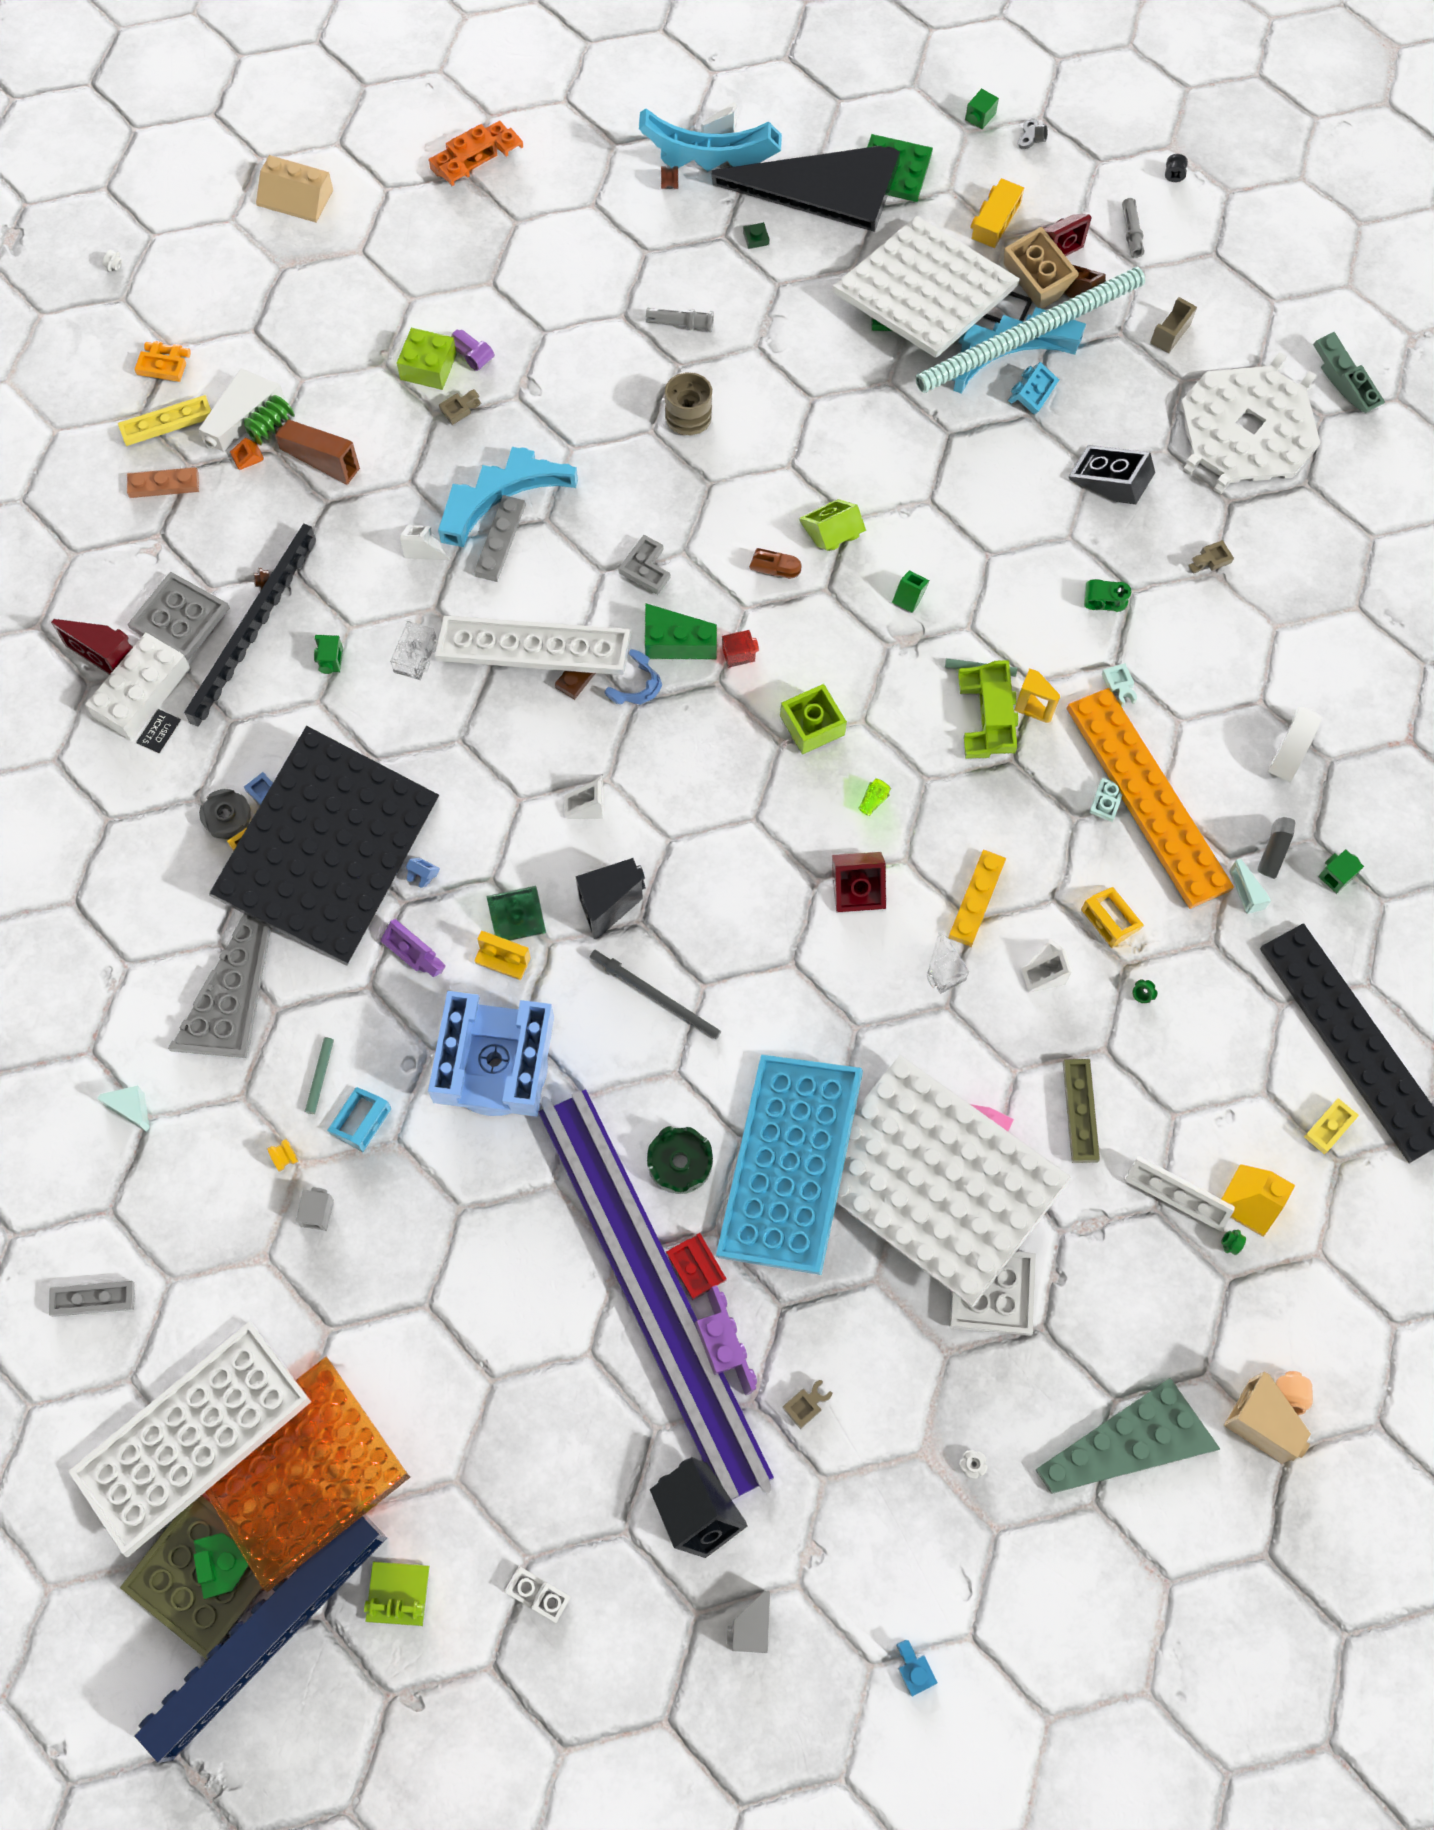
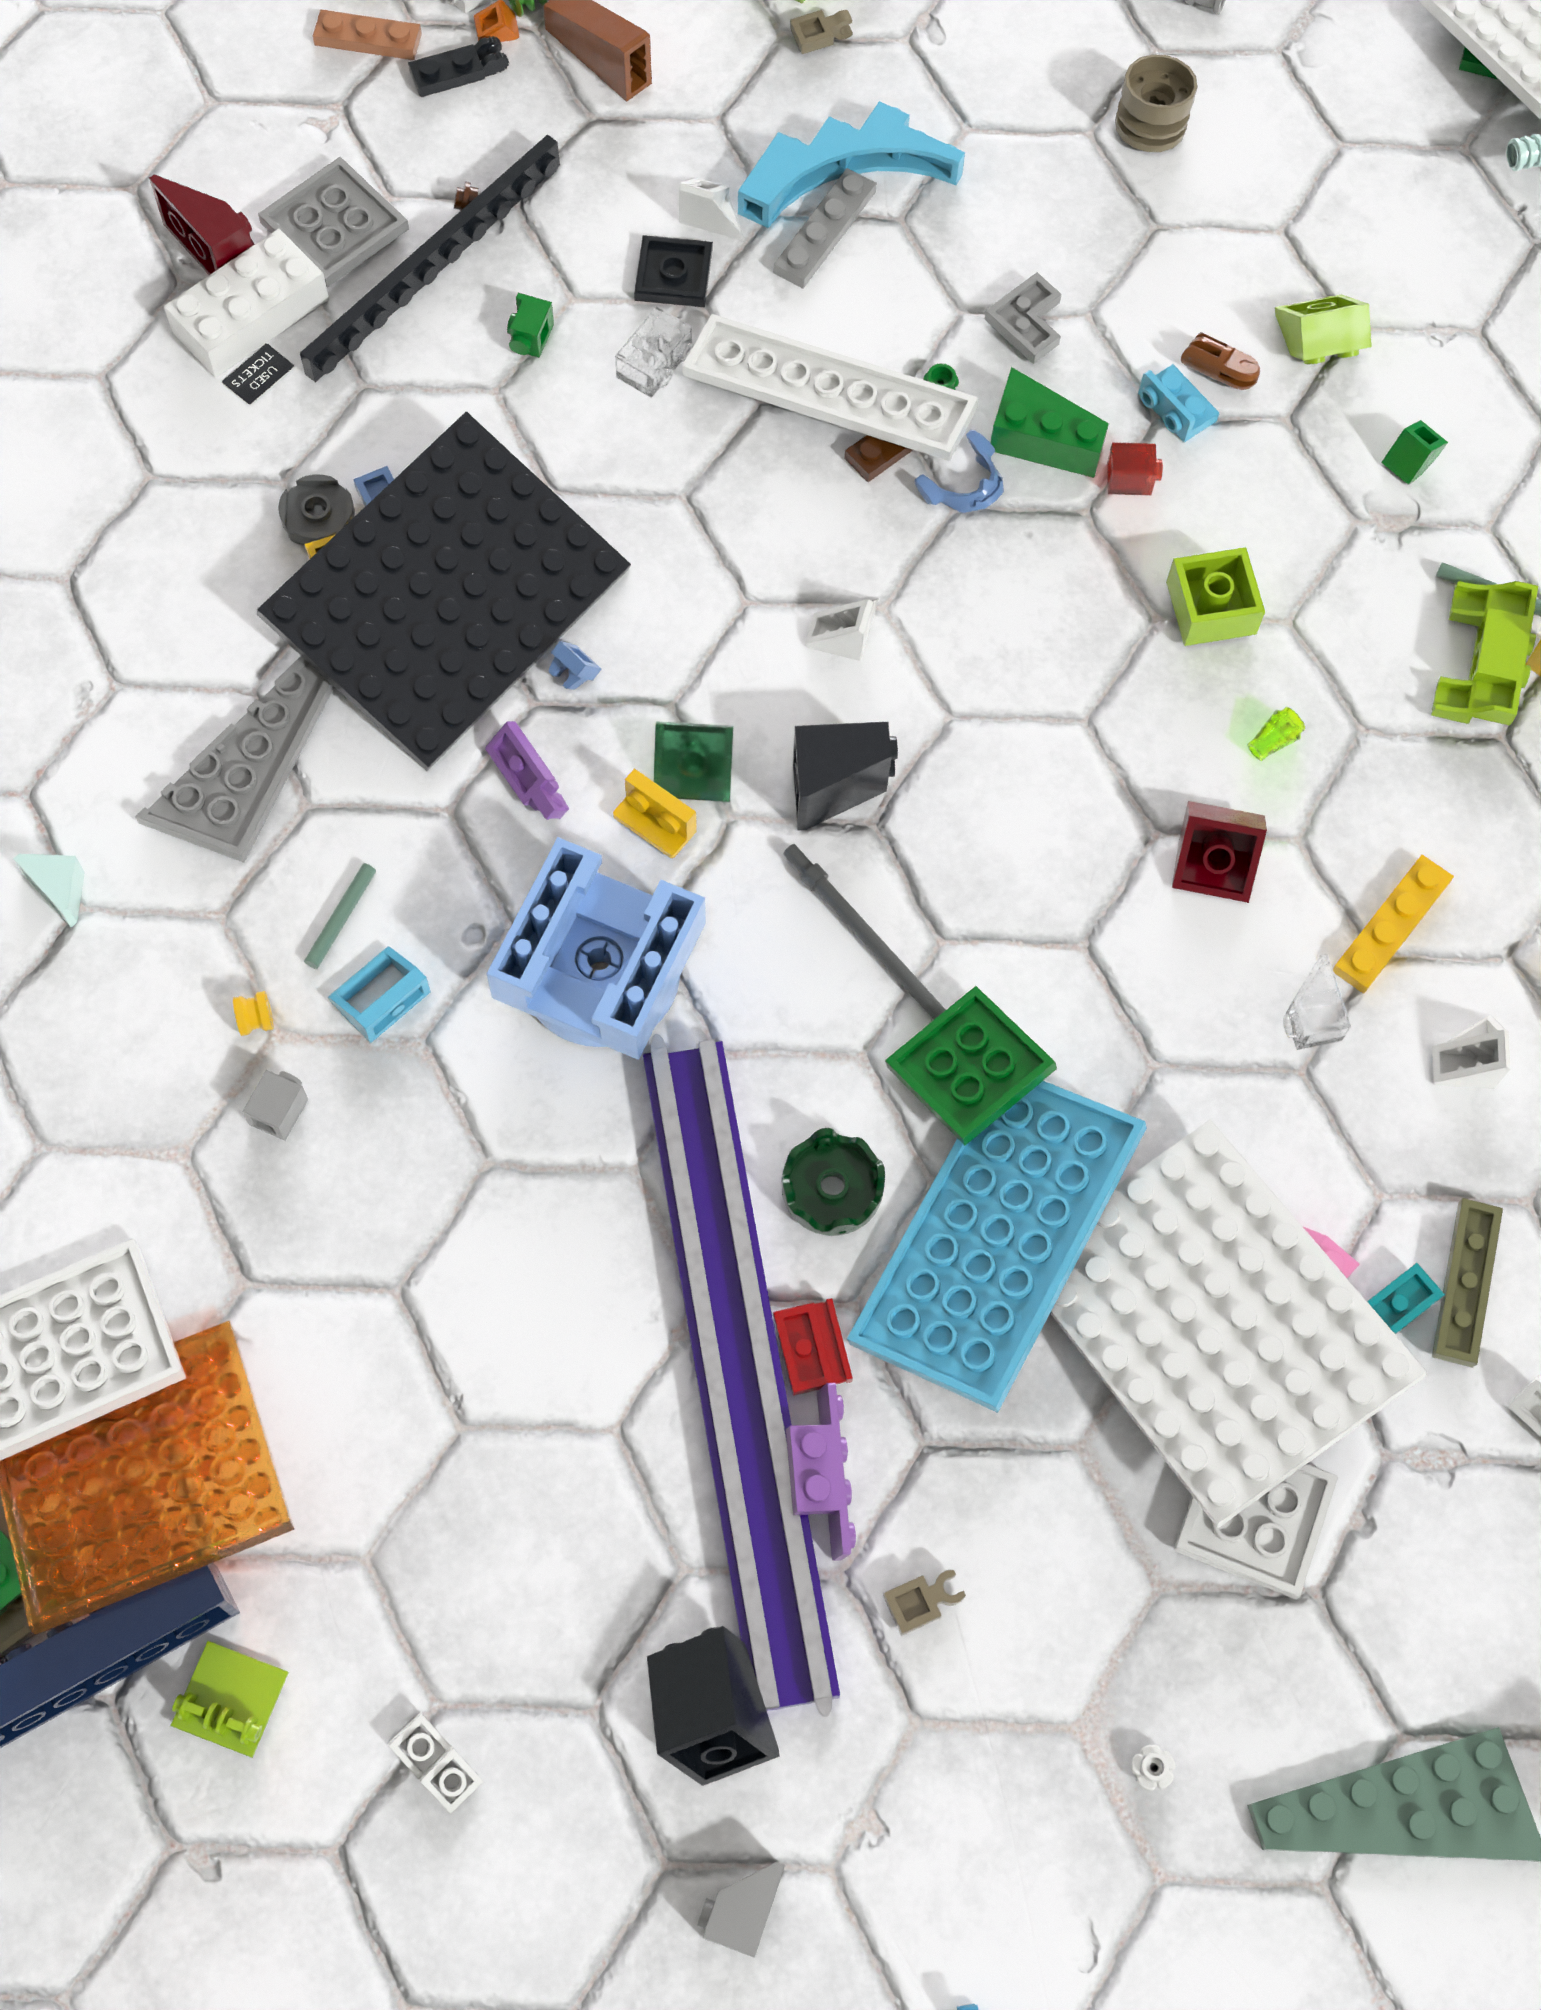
camera: 15 degrees right, 0 degrees up
(229, 489) = (458, 66): none -> black hinge
(410, 592) = (673, 271): none -> black tile
(602, 616) = (944, 374): none -> green plate
(744, 1061) = (970, 1065): none -> green plate
(755, 597) = (1177, 402): none -> medium azure bracket
(1046, 1132) = (1406, 1298): none -> teal plate

